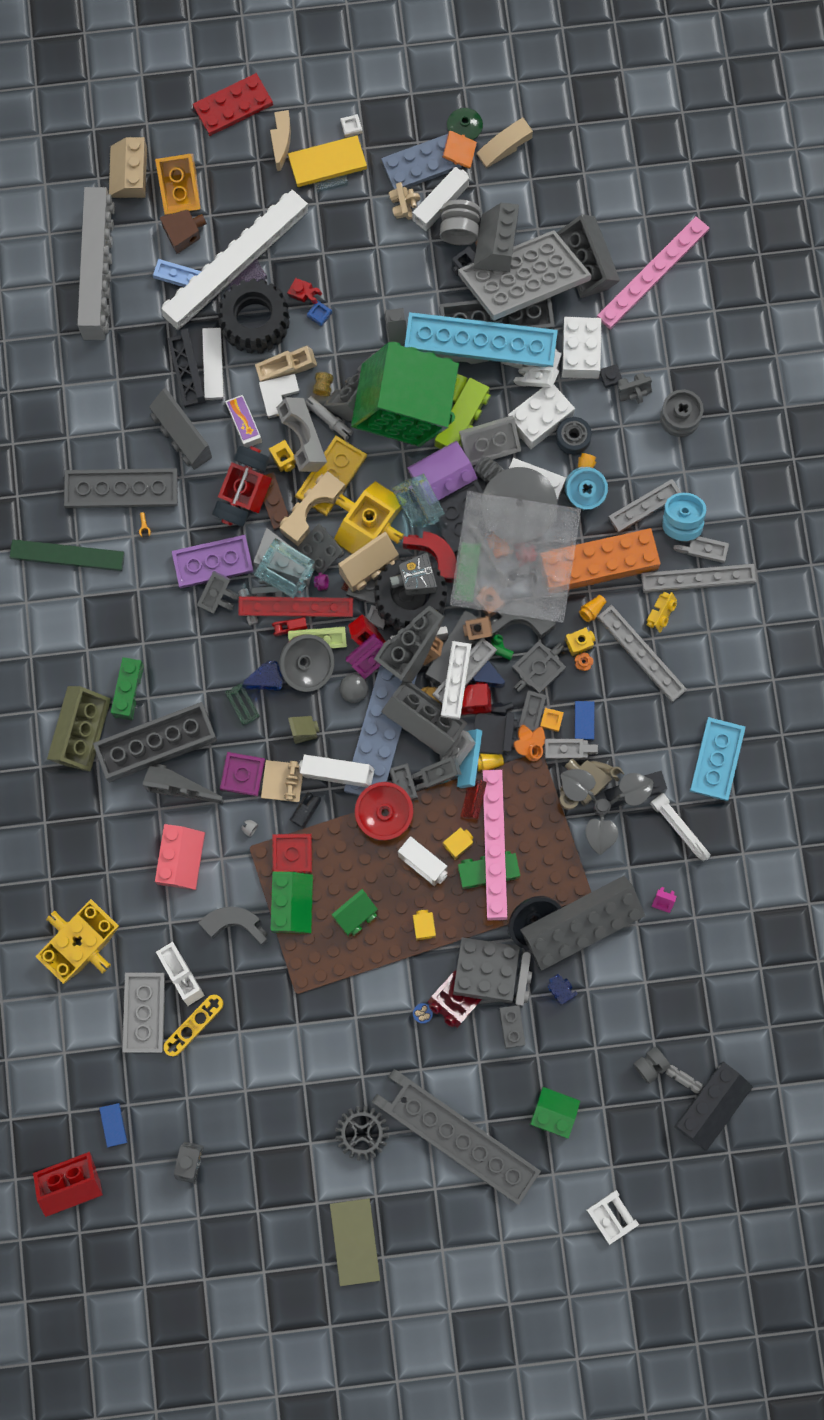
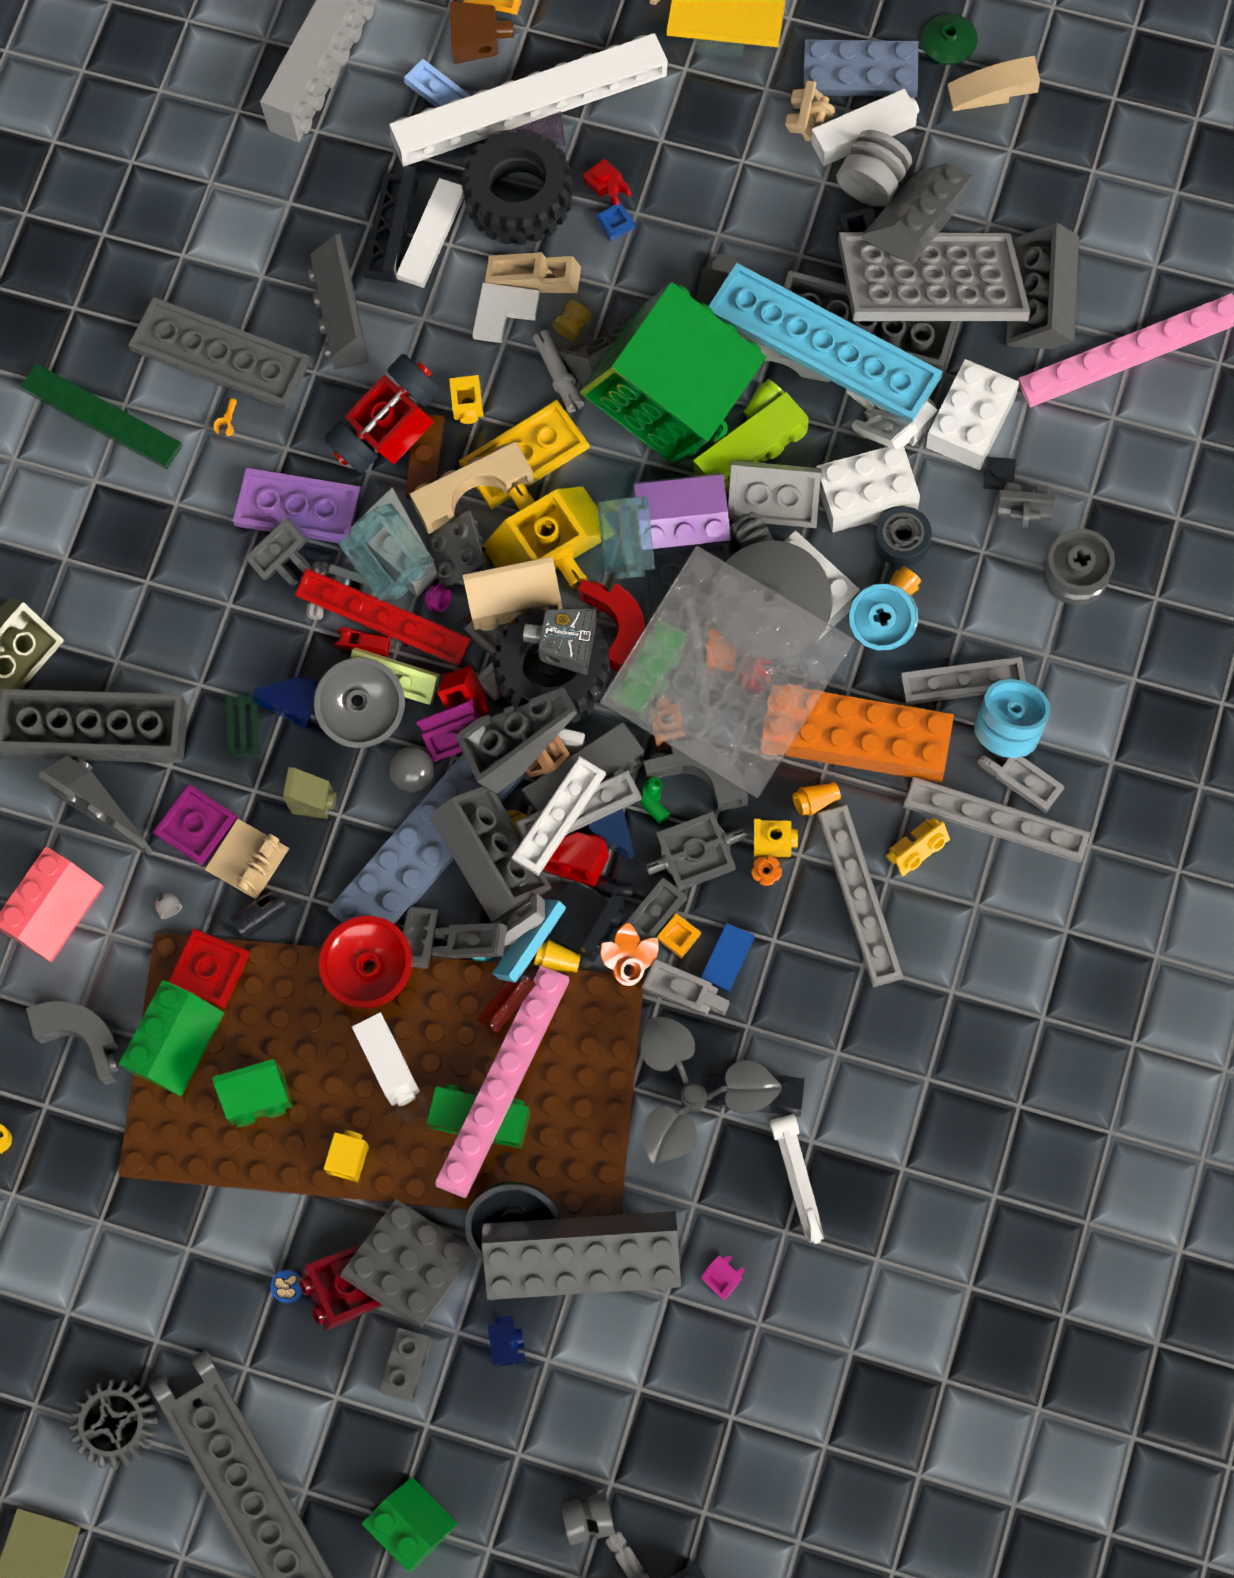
camera: 30 degrees right, 5 degrees down
(128, 680) = (77, 649): green arch -> none
(243, 421) = (434, 329): slope -> none
(295, 414) = (511, 348): light grey arch -> none
(336, 771) = (327, 875): white brick -> none
(458, 842) = (454, 1056): yellow brick -> none
(459, 149) = (923, 68): orange piece -> none
(486, 629) = (640, 755): medium nougat brick -> none
(524, 978) = (459, 1300): light grey hinge -> none
(601, 774) = (710, 1046): dark tan torso -> none
(717, 759) = (901, 1100): medium azure plate -> none

